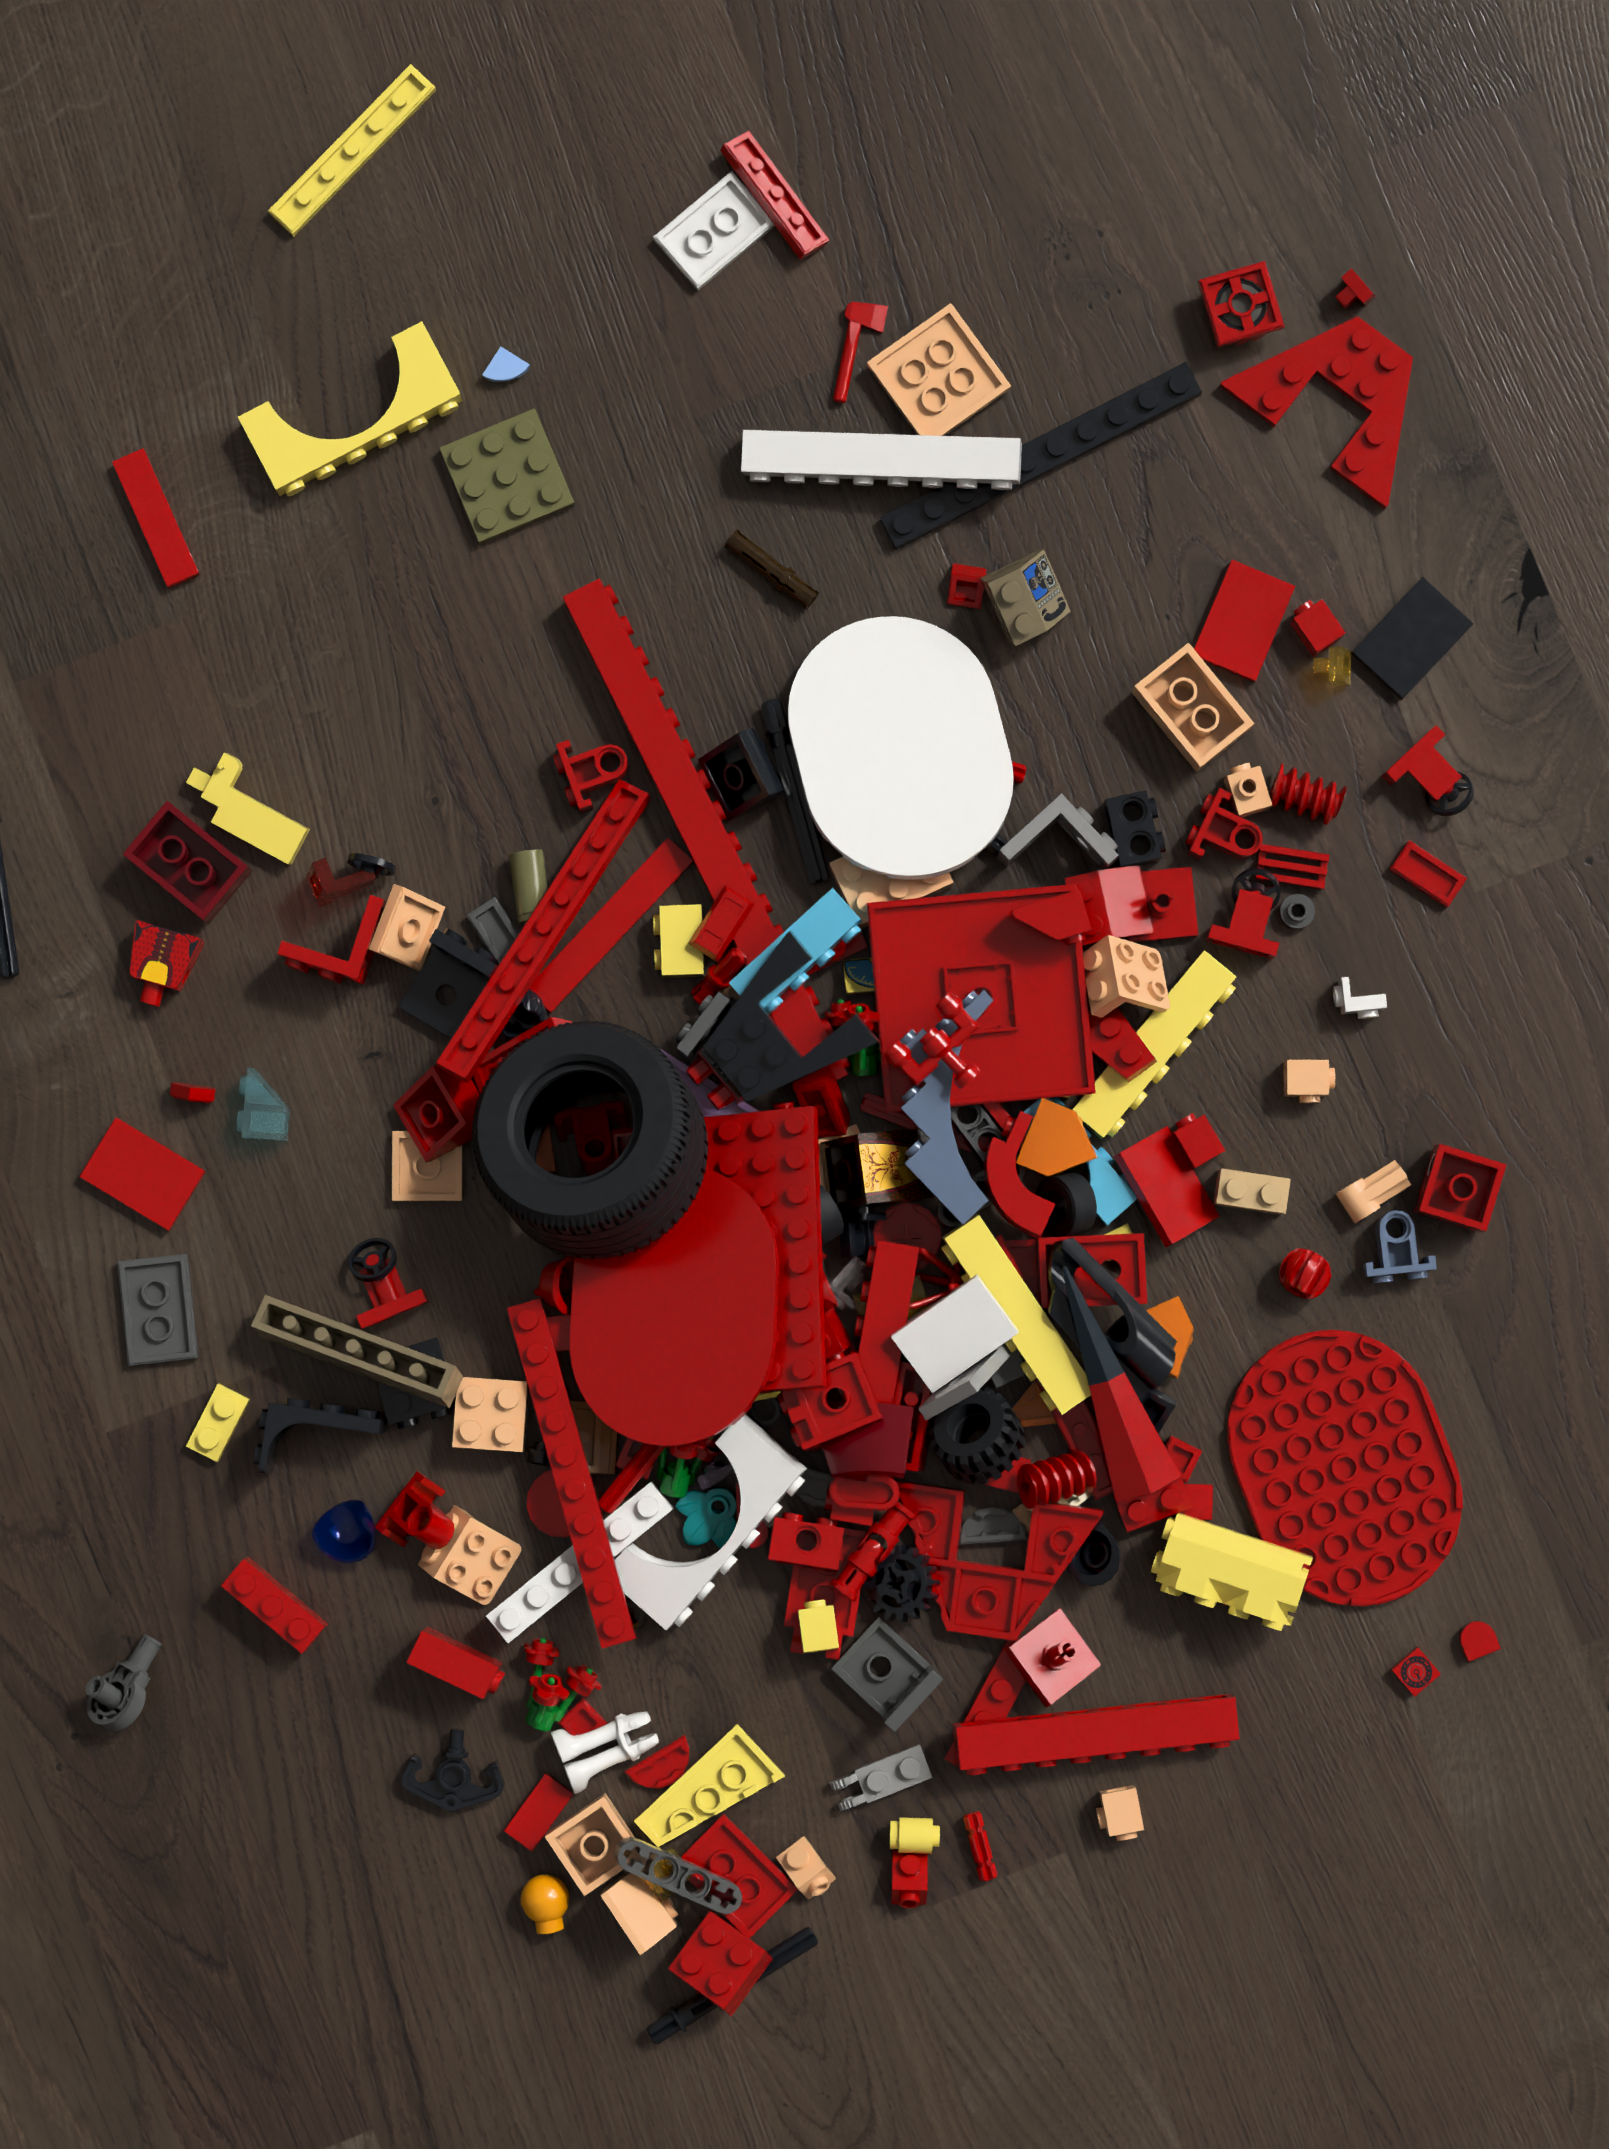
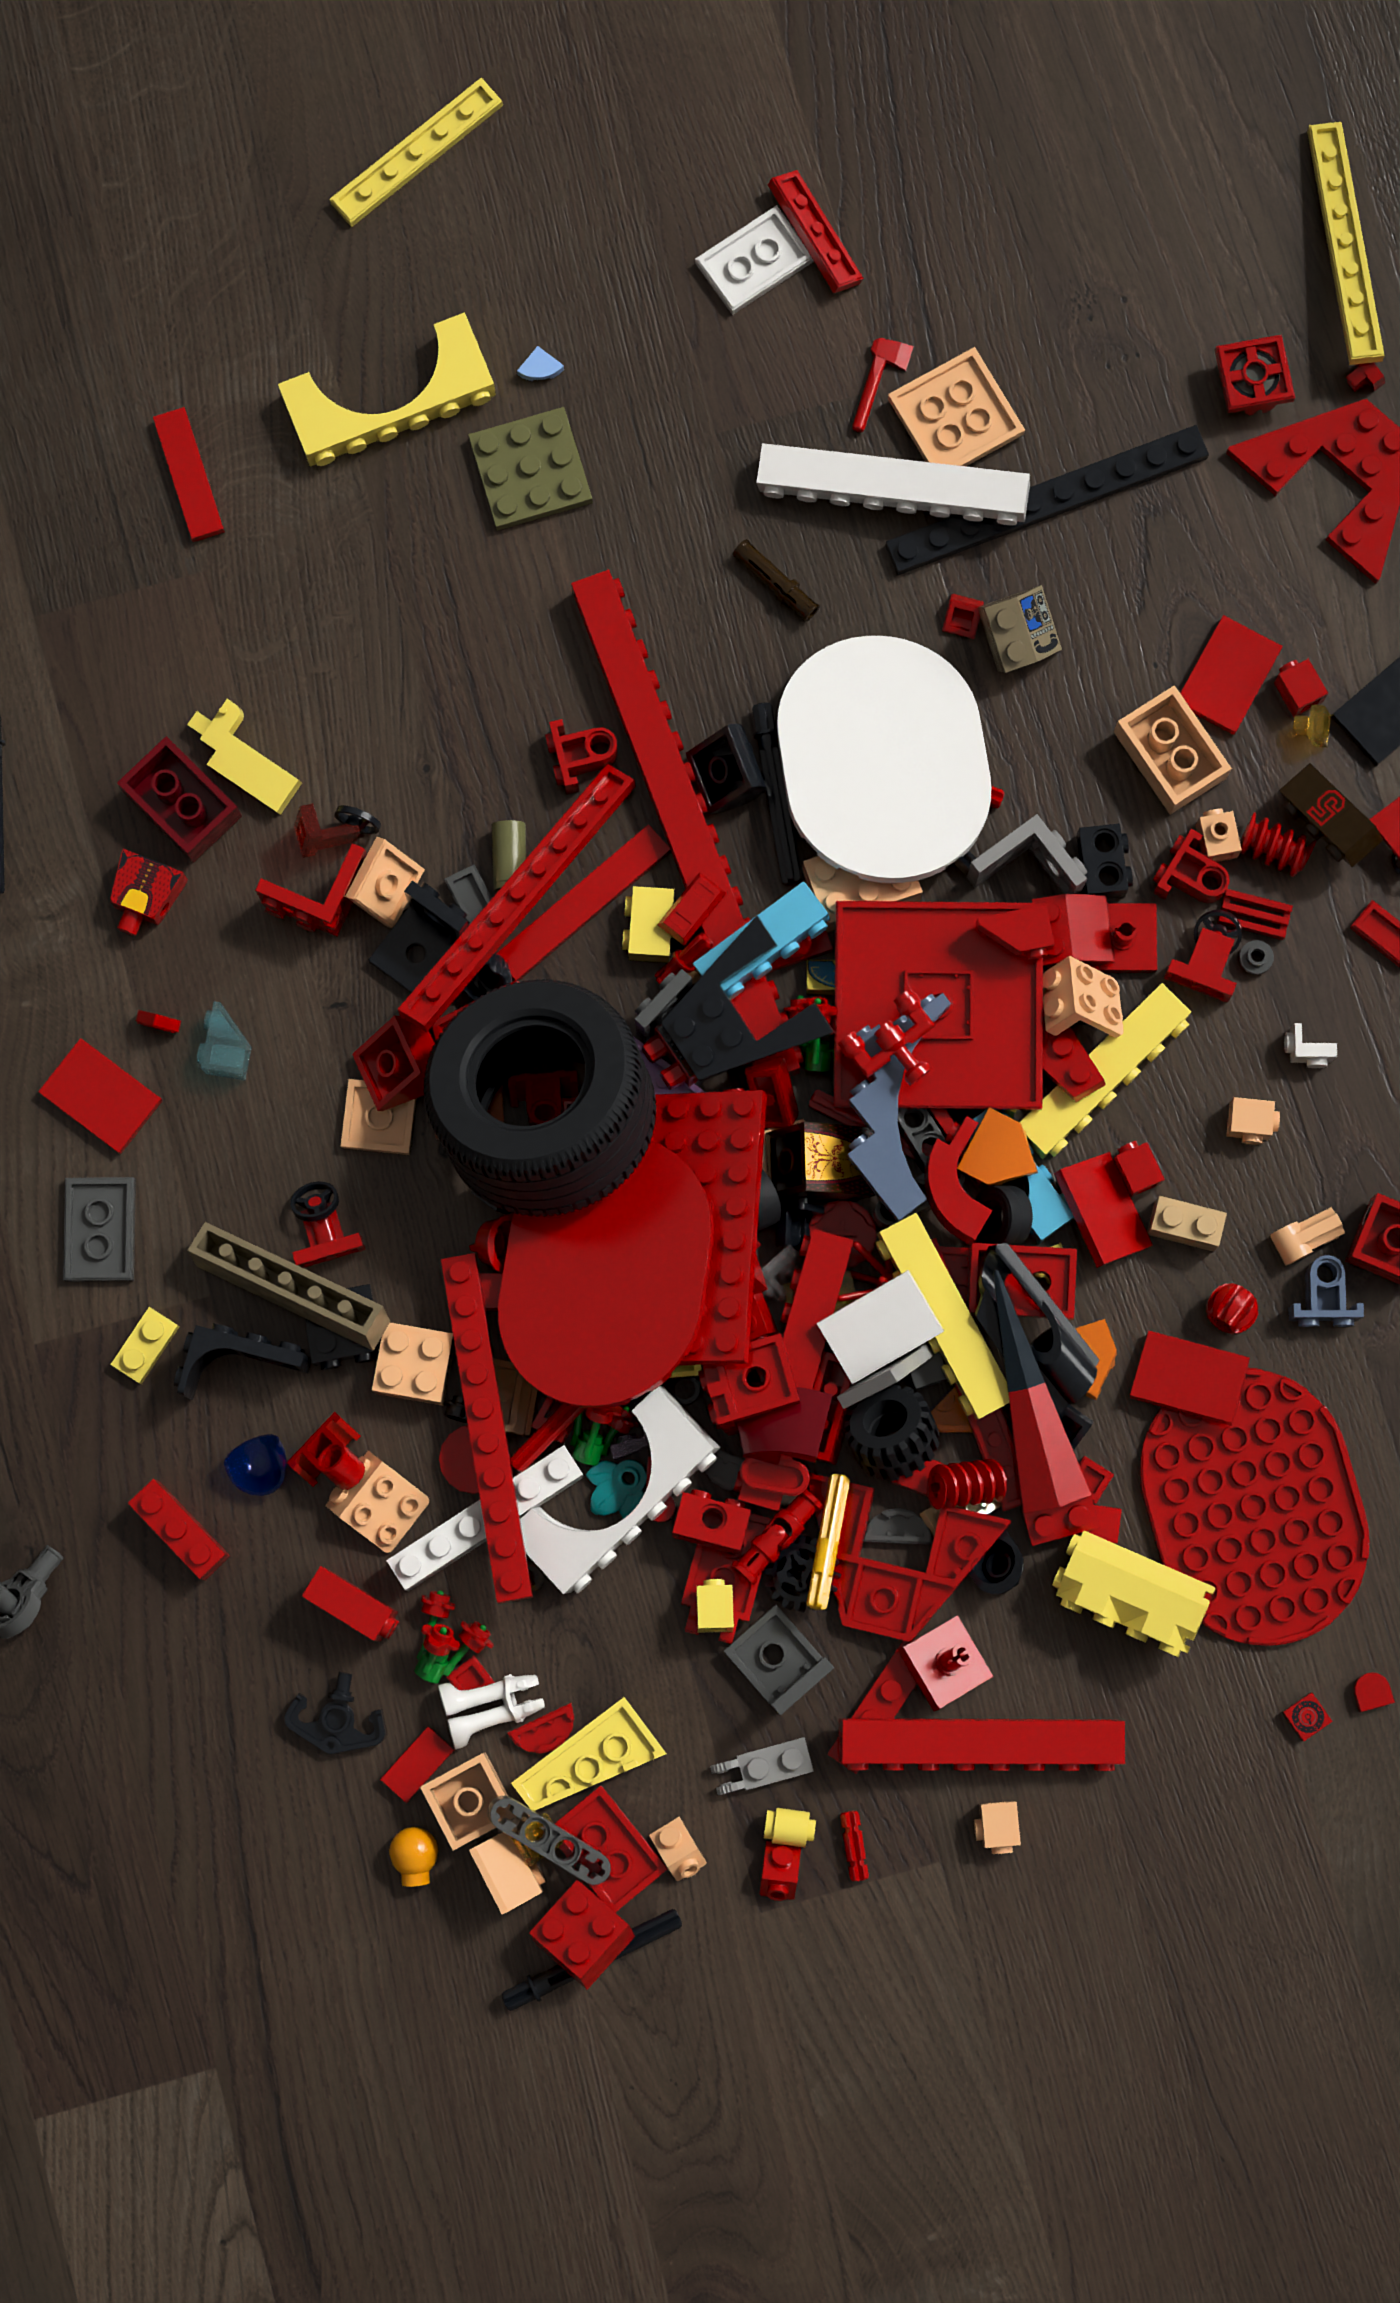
camera: 10 degrees right, 5 degrees down
(924, 1551) = (828, 1542): none -> yellow axle
(1269, 1347) = (1190, 1377): none -> red tile
(1322, 154) = (1345, 243): none -> light yellow tile
(1358, 761) = (1329, 816): none -> dark brown brick

